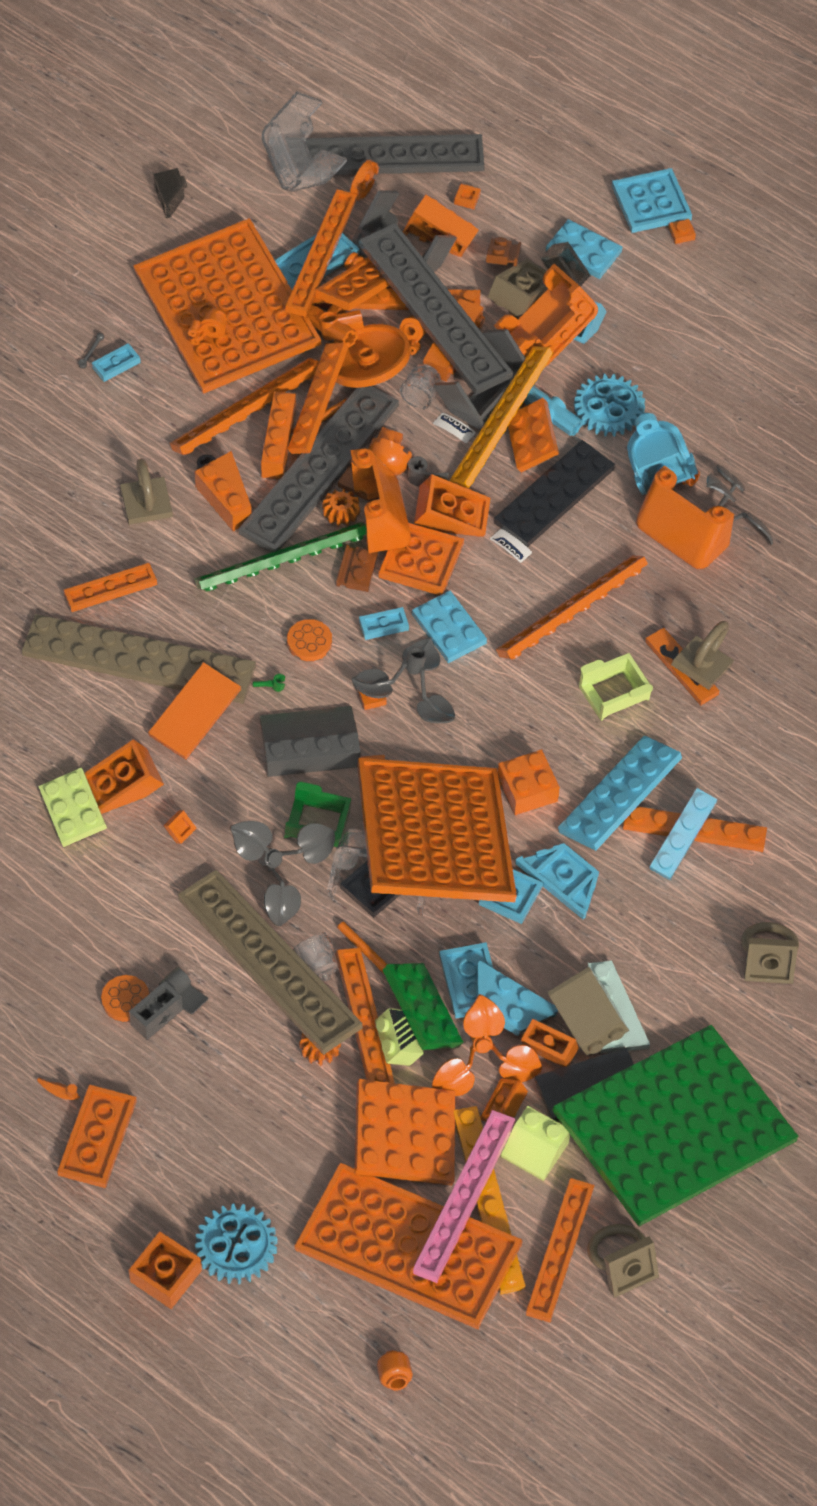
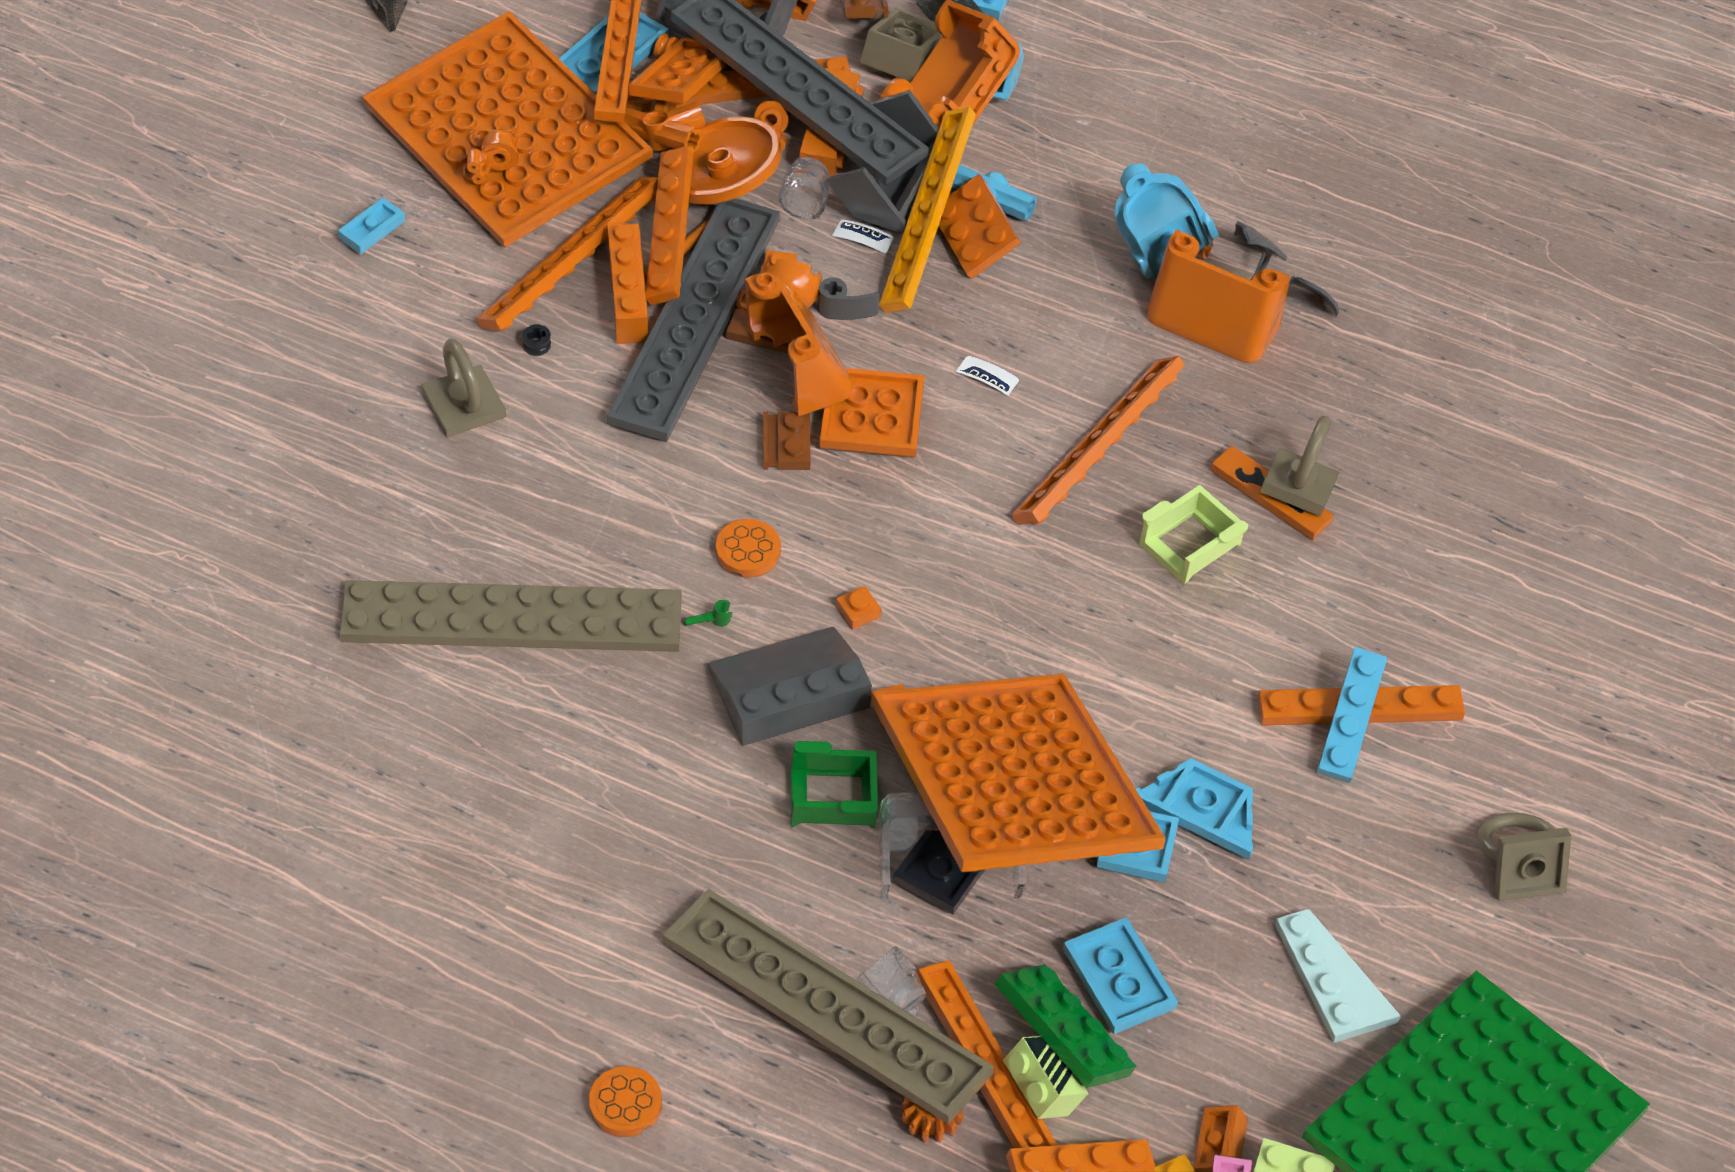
camera: 15 degrees left, 5 degrees down
(72, 807) = (473, 840): yellowish green plate -> none
(83, 362) = (324, 235): dark grey hinge -> none
(110, 587) = (444, 525): orange plate -> none
(123, 777) = (532, 787): orange slope -> none
(156, 1010) = (679, 1109): dark grey brick -> none
(180, 827) = (638, 838): orange plate -> none
(191, 998) = (699, 1072): dark grey panel -> none
(194, 711) = (614, 672): orange tile -> none
(224, 490) = (573, 367): orange wedge -> none
(250, 843) = (758, 836): dark grey plant -> none
(272, 560) = (666, 449): plate -> none
(341, 507) = (741, 363): orange gear -> none
(365, 948) = (958, 962): orange bar -> none
(383, 623) = (846, 507): medium azure plate -> none
(416, 659) = (912, 544): dark grey plant -> none
(449, 626) = (937, 496): medium azure plate -> none
(451, 508) = (893, 338): orange slope -> none
(480, 1022) = (1172, 1025): orange plant -> none
(514, 1000) = (1185, 994): medium azure wing -> none
(528, 782) = (1116, 684): orange brick -> none
(550, 1043) = (1263, 1042): orange brick -> none
(554, 493) = (1026, 297): black plate -> none
(575, 1078) = (1312, 1089): black tile -> none
(588, 1011) = (1308, 985): dark tan slope -> none
(609, 404) = (1065, 172): medium azure gear -> none
(619, 793) = (1244, 676): medium azure plate -> none

